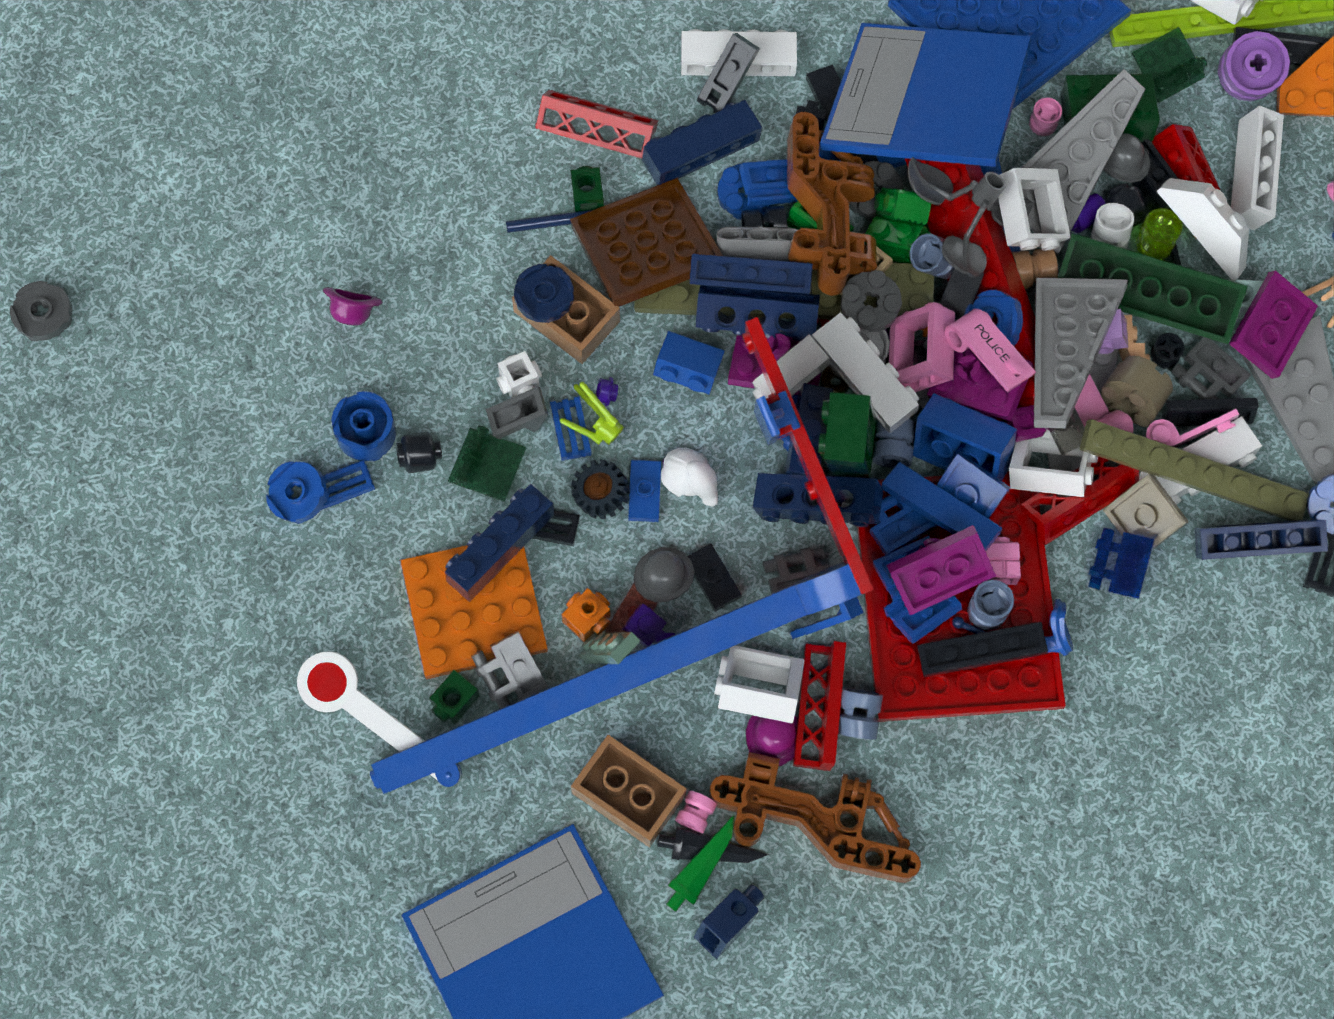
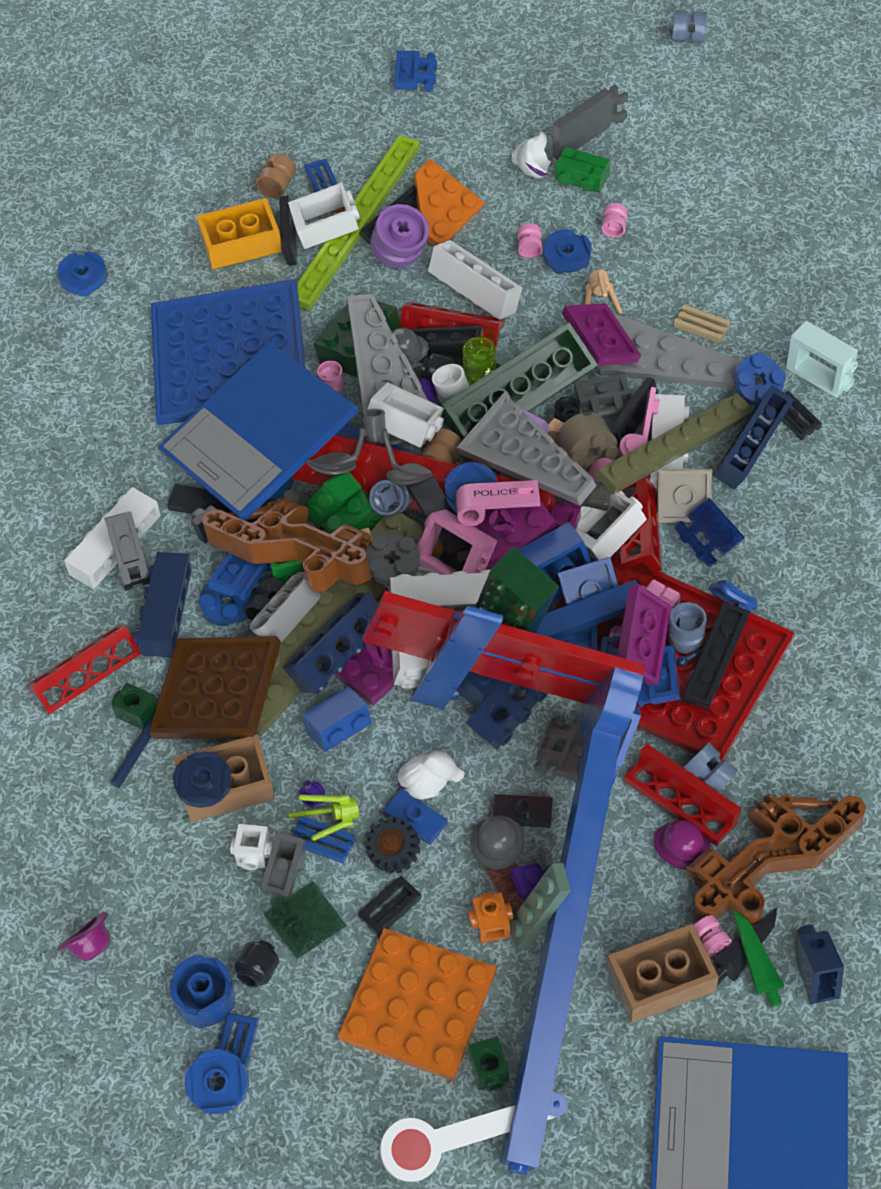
camera: 50 degrees left, 15 degrees down
(499, 543) = (386, 942): dark blue brick -> none
(517, 665) = (500, 995): plate -> none
(751, 273) = (307, 623): dark blue fence -> none
(764, 667) = (642, 798): white window -> none
(1170, 63) = (351, 280): clear green hinge -> none
(1210, 221) = (497, 320): white wedge -> none

